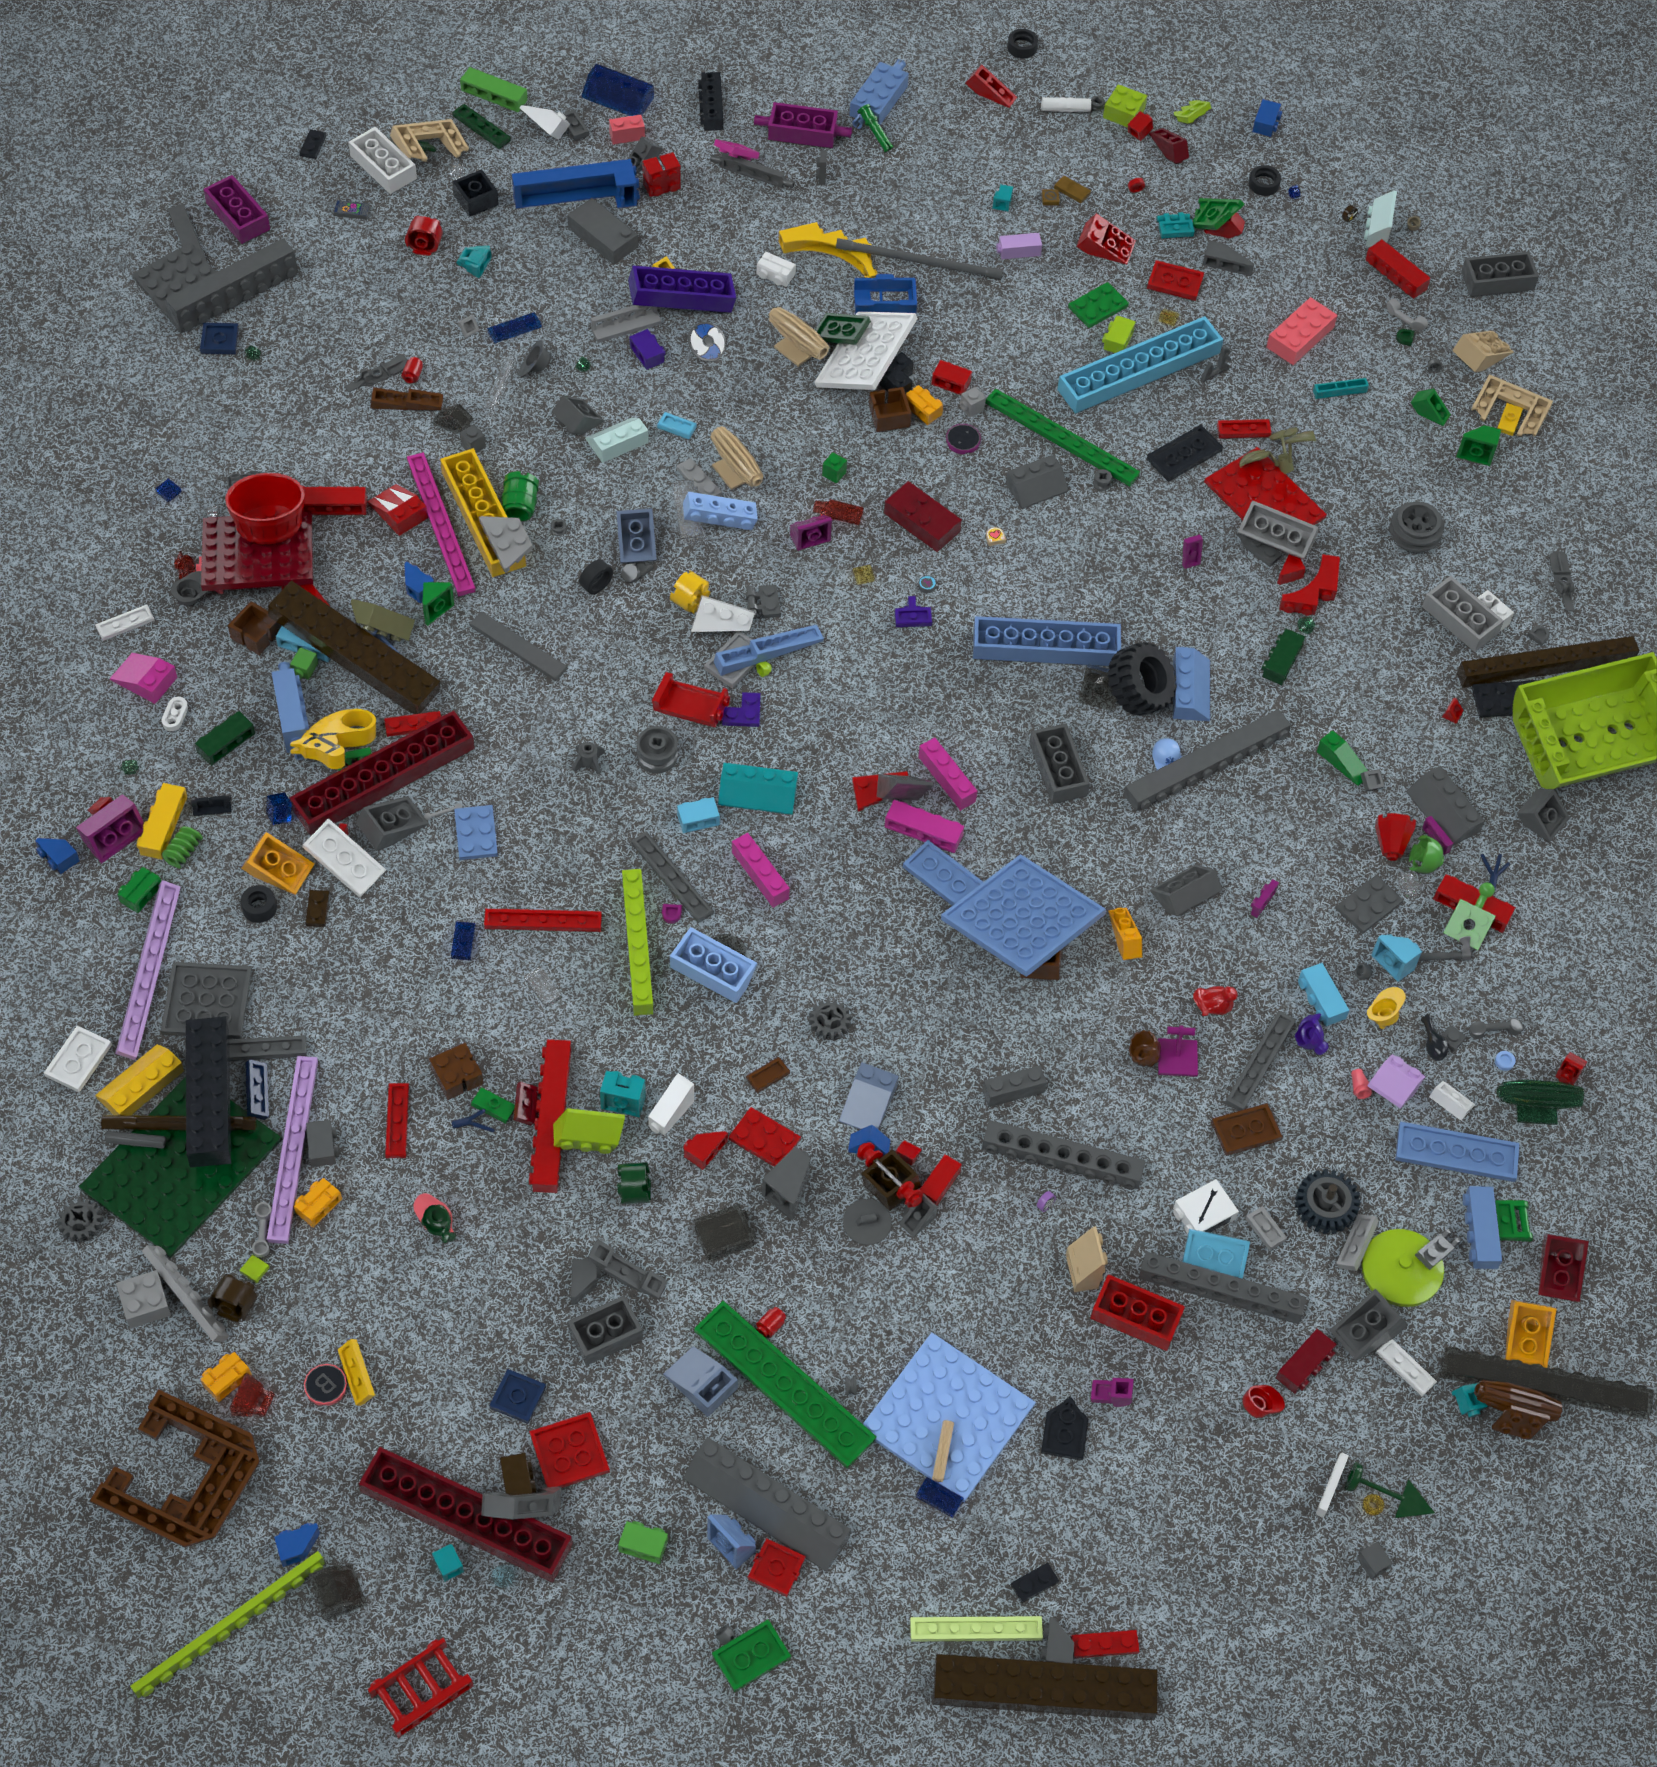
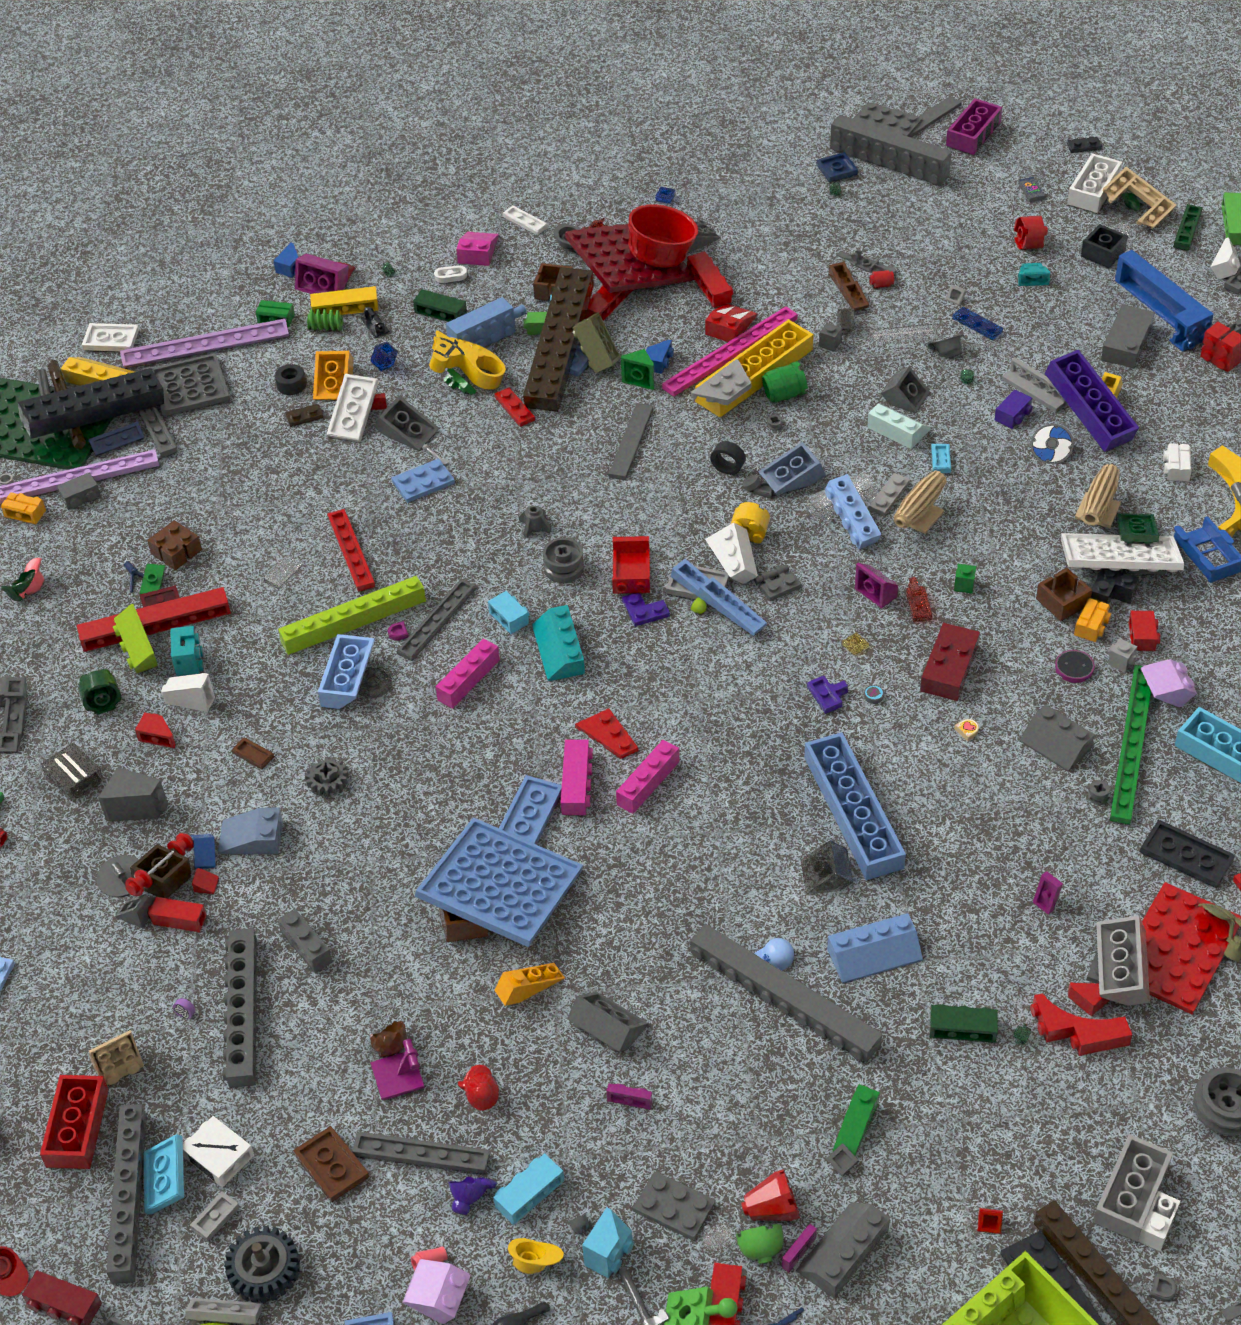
camera: 75 degrees right, 10 degrees down
(382, 772) = (451, 402): dark red brick -> none
(397, 1120) = (119, 530): red tile -> none
(463, 940) = (308, 508): clear blue plate -> none
(764, 1137) = (185, 771): red plate -> none
(901, 787) = (604, 737): dark grey slope -> none
(1020, 383) = (1169, 682): none -> lavender slope
(1059, 763) = (706, 860): dark grey brick -> none
(1127, 684) = (868, 896): black tyre -> none

